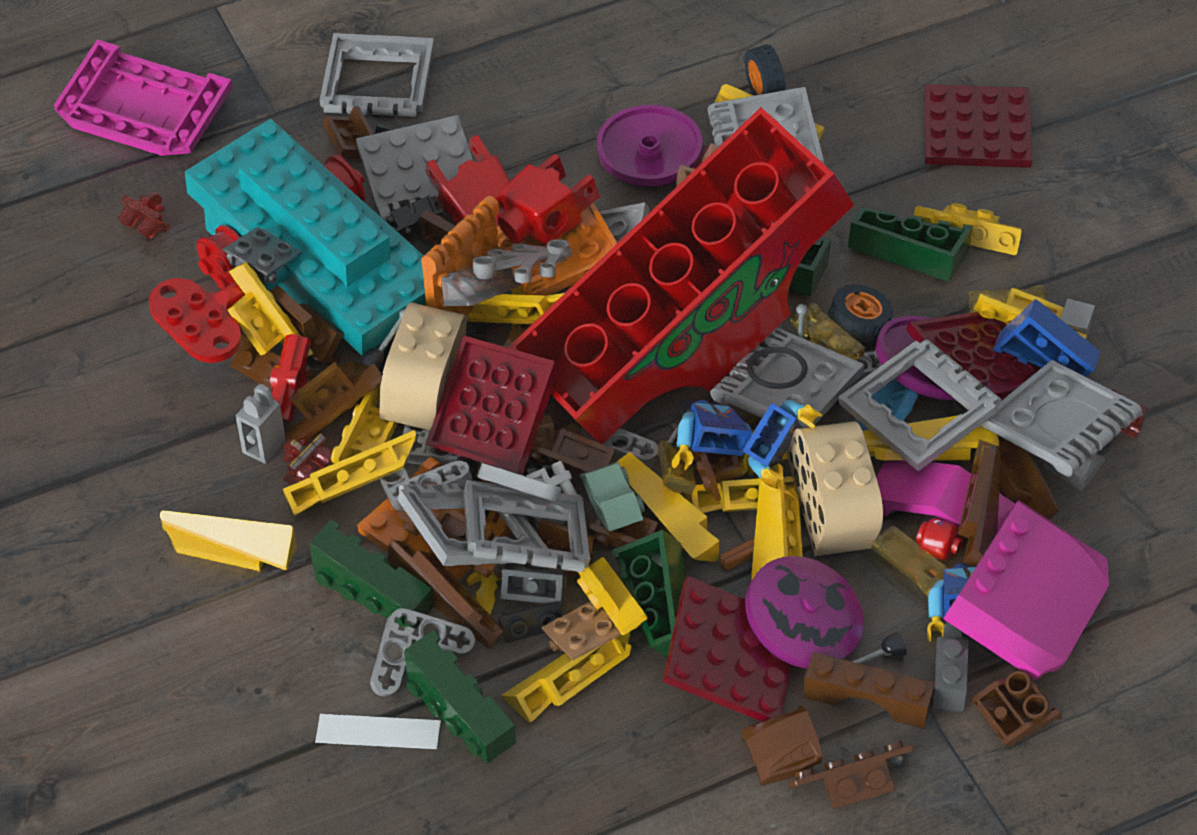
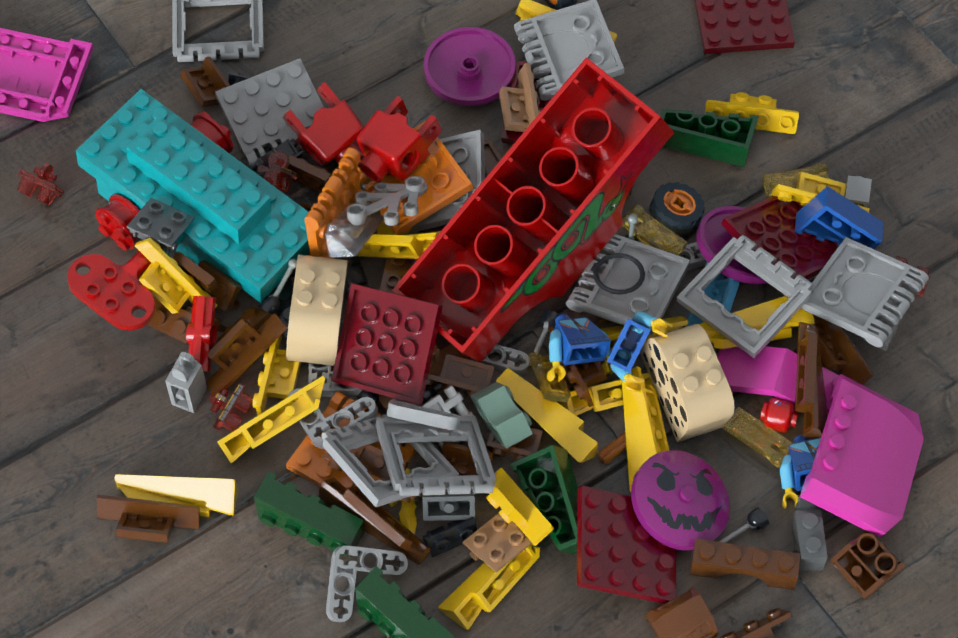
camera: 10 degrees left, 10 degrees up
(189, 560) = (147, 518): none -> reddish brown bracket
(409, 223) = (278, 174): none -> clear red hips

